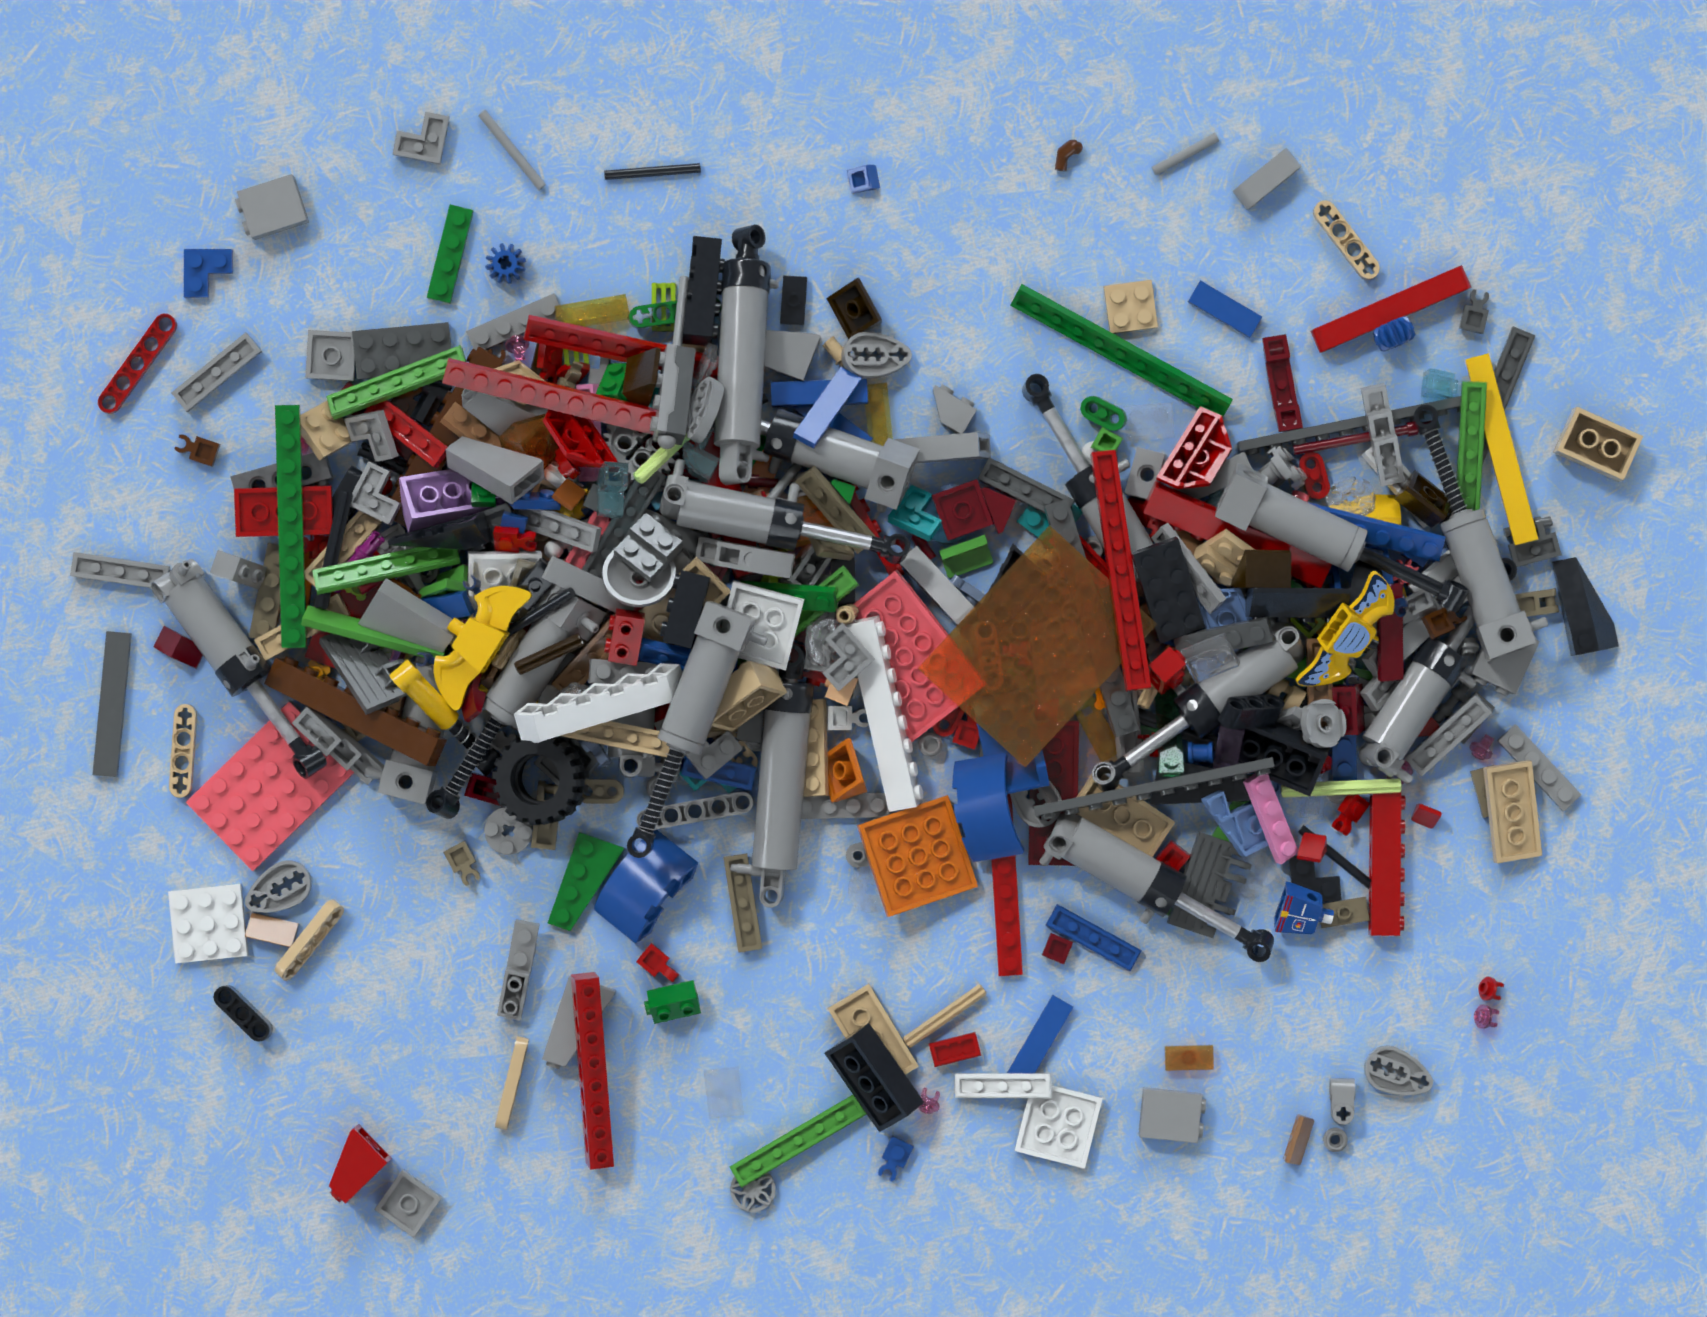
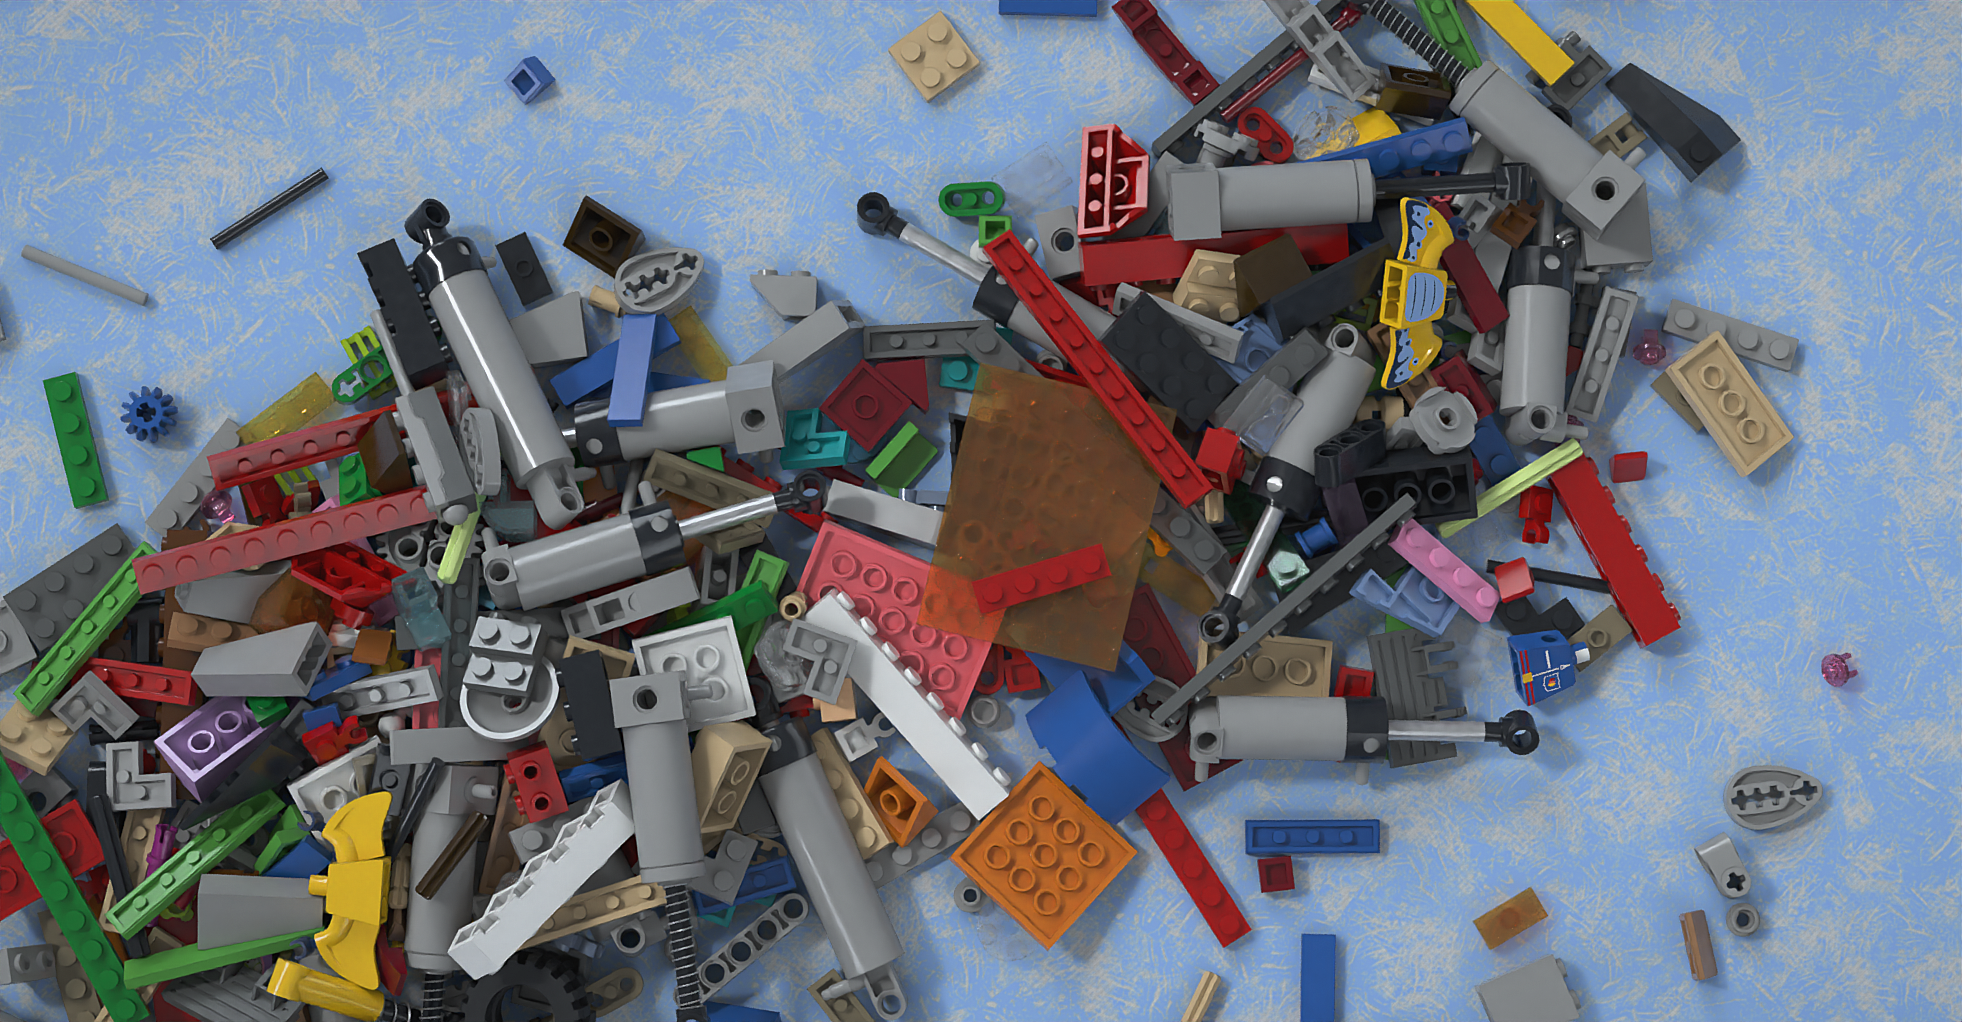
camera: 30 degrees left, 5 degrees down
(1011, 684) = (1041, 579): none -> red plate
(1119, 351) = (949, 115): green plate -> none
(1488, 988) = (1822, 632): red plate -> none

